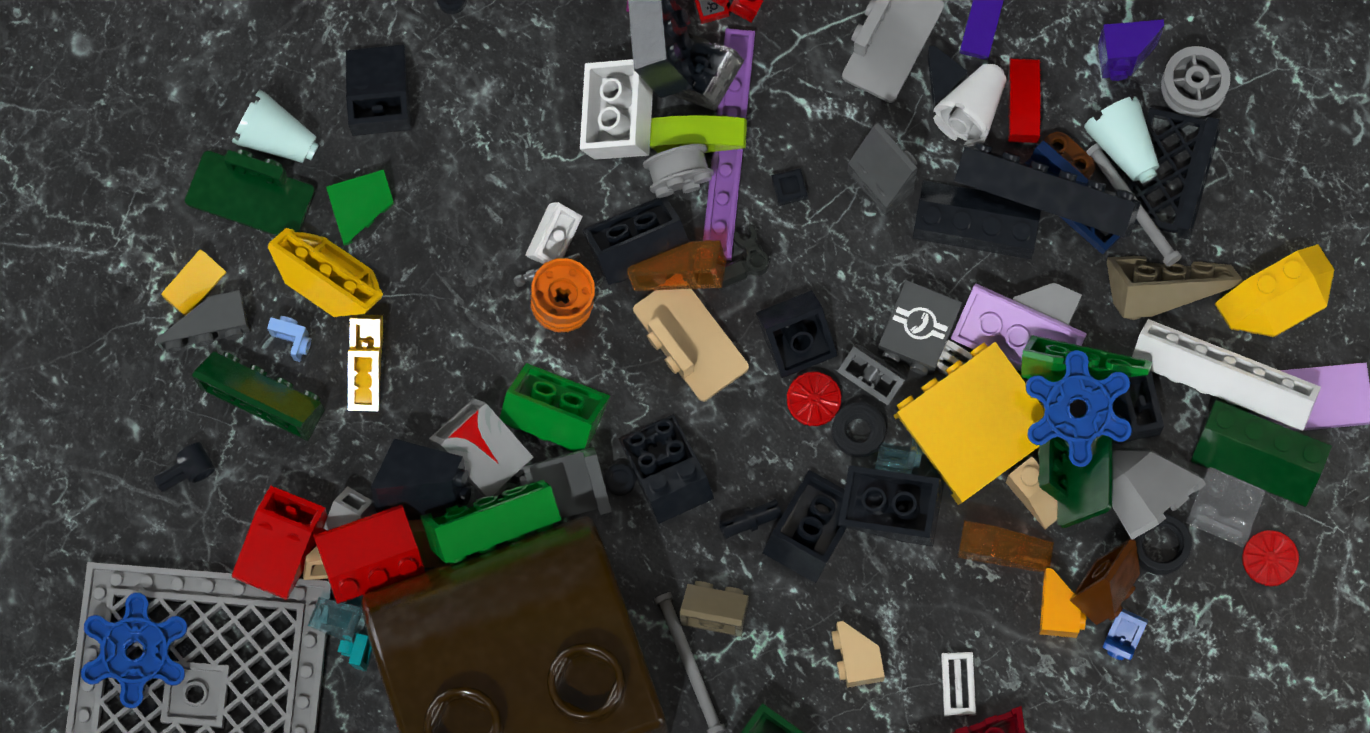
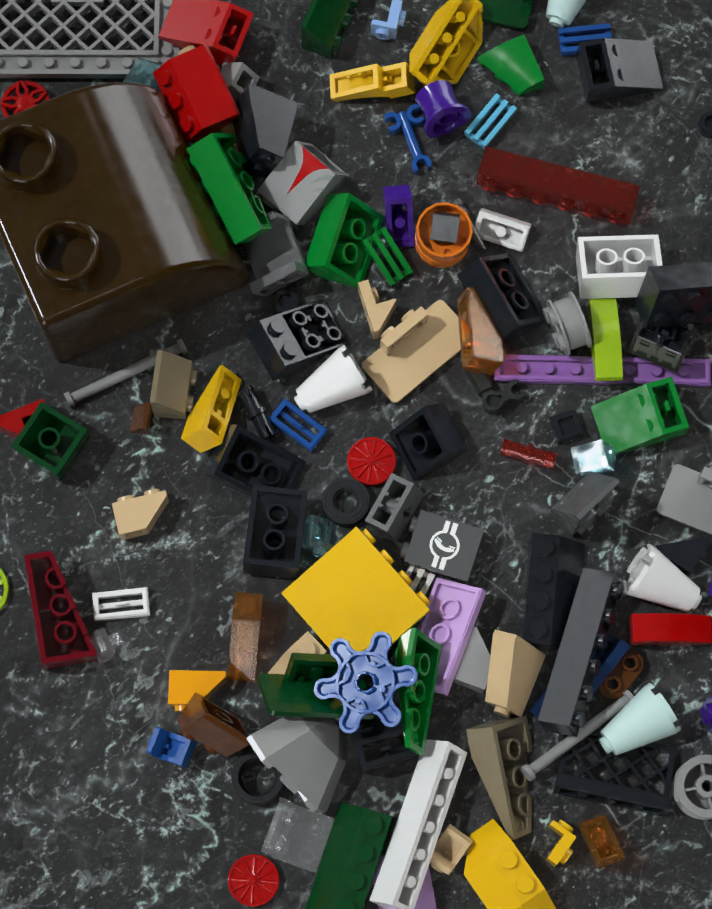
camera: 80 degrees right, 0 degrees up
(333, 99) = (563, 34): none -> blue tile
(405, 219) = (503, 105): none -> medium azure tile
(407, 286) = (441, 109): none -> dark purple piece
(412, 330) = (406, 121): none -> blue bar
(510, 168) = (557, 185): none -> clear red brick
(529, 344) = (399, 214): none -> dark purple slope
(559, 288) = (445, 226): none -> tile
(598, 351) = (395, 250): none -> green tile
(648, 379) = (376, 314): none -> tan slope
(724, 431) = (332, 383): none -> white cone
(745, 648) = (142, 419): none -> reddish brown slope
(749, 495) = (322, 431): none -> blue tile
(750, 568) = (212, 412): none -> yellow slope
(789, 106) = (641, 416): none -> green slope
(818, 229) = (528, 453): none -> clear red pin
(831, 159) = (593, 457): none -> clear light blue brick
(1005, 700) = (105, 644): none -> clear tile
(1066, 265) = (511, 673): none -> tan slope
(1248, 344) = (449, 850): none -> tan bracket
(1249, 190) = (601, 842): none -> clear orange slope
(1250, 232) = (561, 851): none -> yellow bracket

